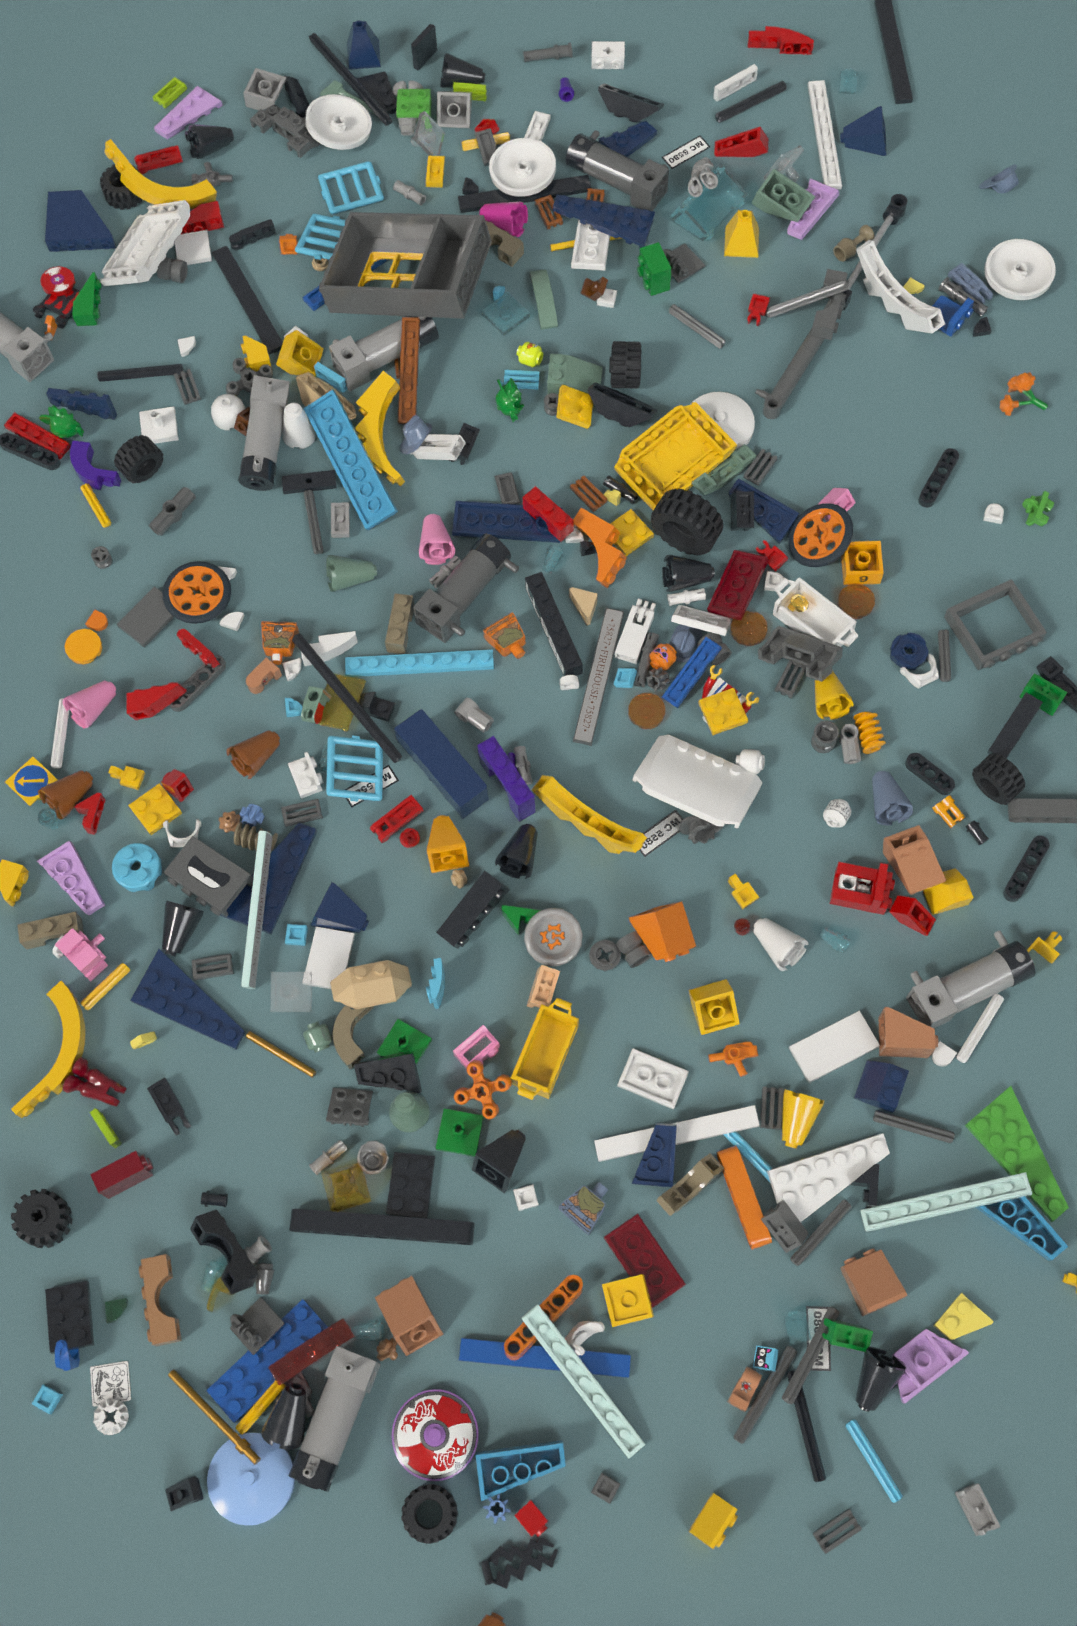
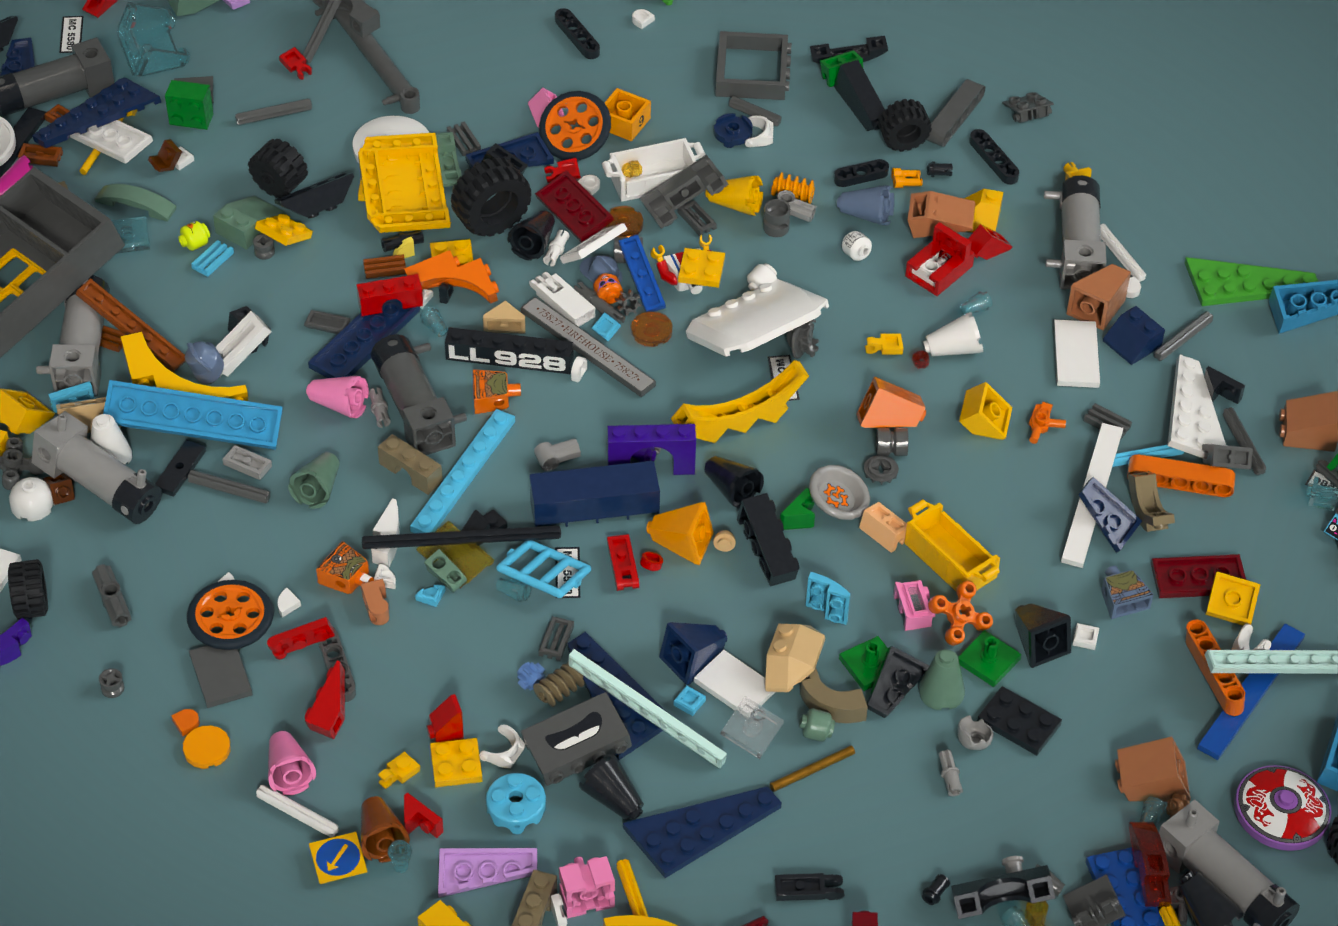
camera: 65 degrees left, 20 degrees down
(95, 505) = (38, 663): yellow axle -> none
(143, 1040) = (719, 880): light yellow tile -> none
(229, 821) = (522, 700): medium nougat plant -> none
(229, 965) = (670, 801): dark grey tile -> none
(253, 753) = (463, 646): dark orange cone -> none
(305, 776) = (518, 614): white bracket -> none
(345, 1187) = (990, 768): clear yellow slope -> none
(349, 1107) = (909, 732): dark grey hinge -> none
(382, 1226) = (1048, 760): black beam -> none
(509, 399) = (230, 270): green hair -> none
(653, 1078) = (1026, 491): white tile -> none
(702, 170) = (111, 25): light grey piece -> none
(742, 235) = (208, 33): yellow slope -> none
(798, 1117) = (1129, 400): yellow cone -> none
(856, 601) = (653, 135): clear orange tile -> none
(946, 1202) = (1268, 340): light aqua tile -> none

